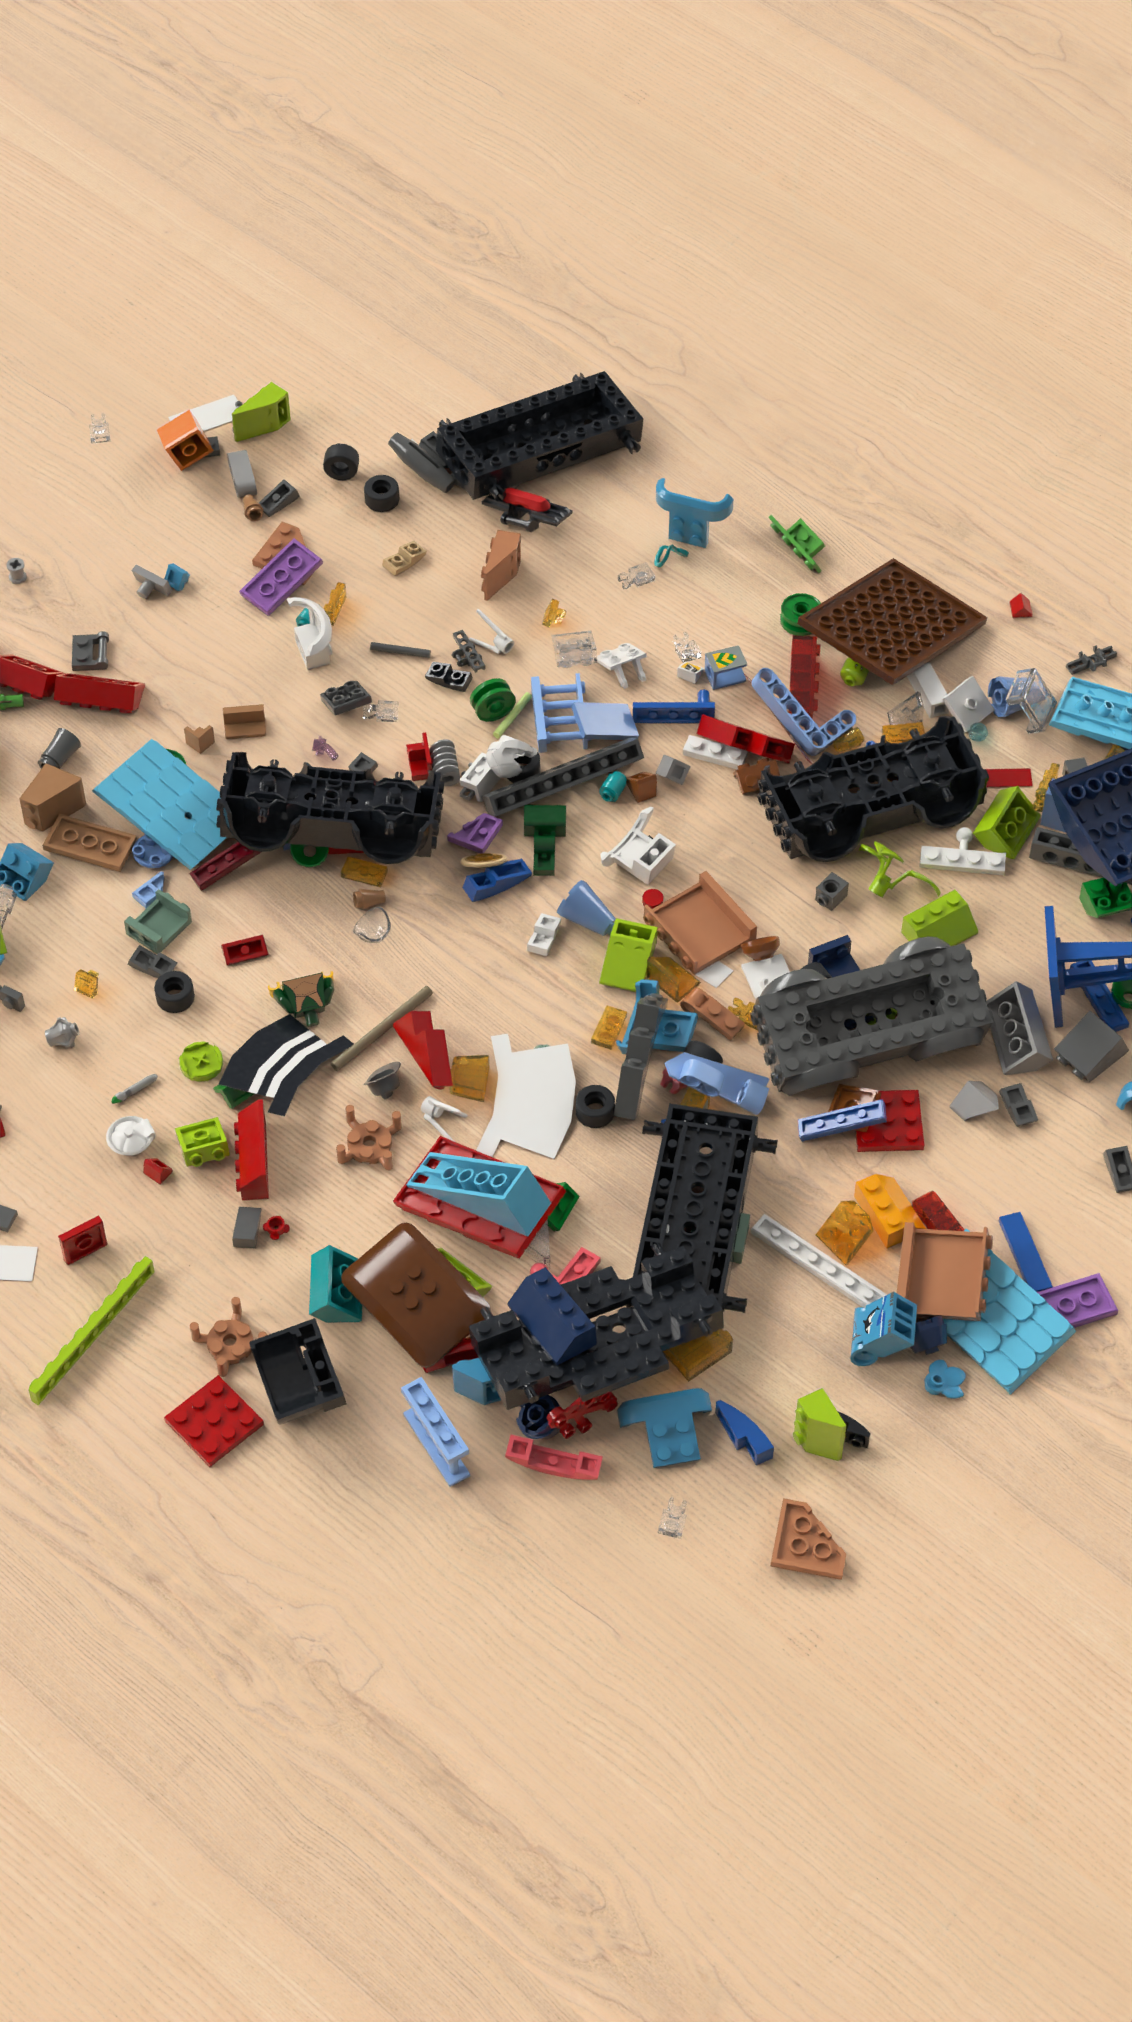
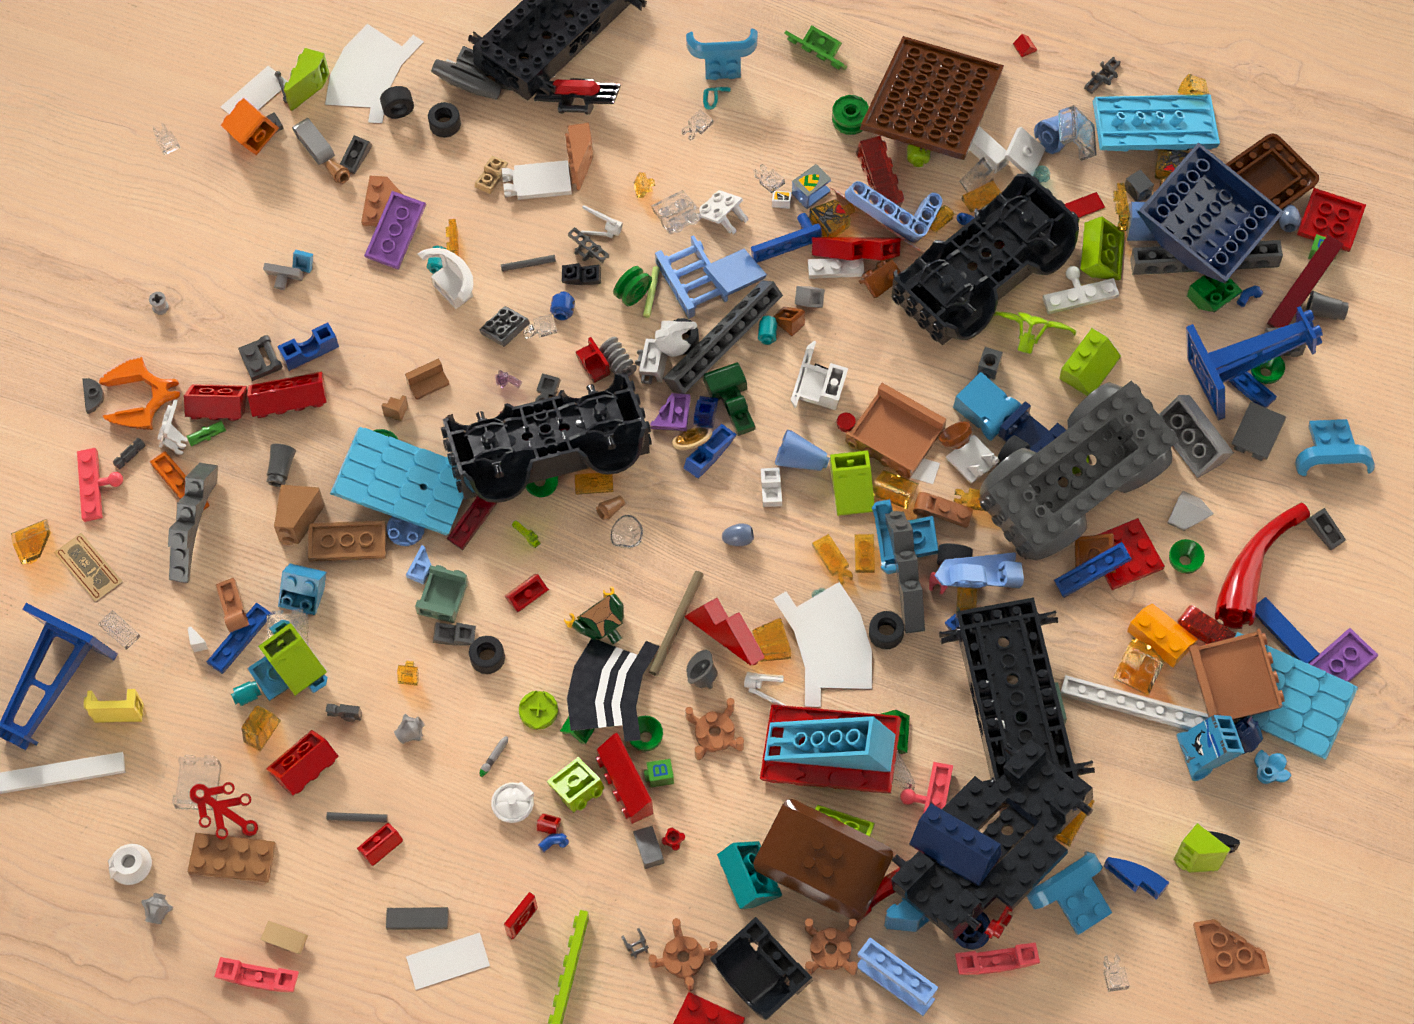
camera: 20 degrees left, 10 degrees up
(127, 658) = (321, 342): none -> blue arch
(152, 1185) = (551, 839): none -> blue arm
(196, 1311) = (629, 946): none -> dark grey piece
(272, 895) = (530, 536): none -> clear neon green bar
(292, 1160) = (659, 773): none -> bright green brick
(298, 1110) = (654, 728): none -> green piece
(327, 422) = (367, 70): none -> white sticker
(380, 1376) = (830, 937): none -> nougat plate
(414, 698) = (562, 306): none -> blue head
(446, 577) = (537, 180): none -> white tile
(486, 966) = (738, 535): none -> sand blue animal
(508, 840) = (705, 412): none -> clear blue brick
(573, 1020) = (832, 558): none -> clear yellow plate
(733, 703) = (832, 217): none -> clear yellow torso
(804, 925) = (985, 405): none -> dark azure piece
(951, 1135) = (1189, 549): none -> green piece
(997, 1188) = (1240, 588): none -> red brick
(1017, 1105) = (1222, 503): dark grey slope -> none

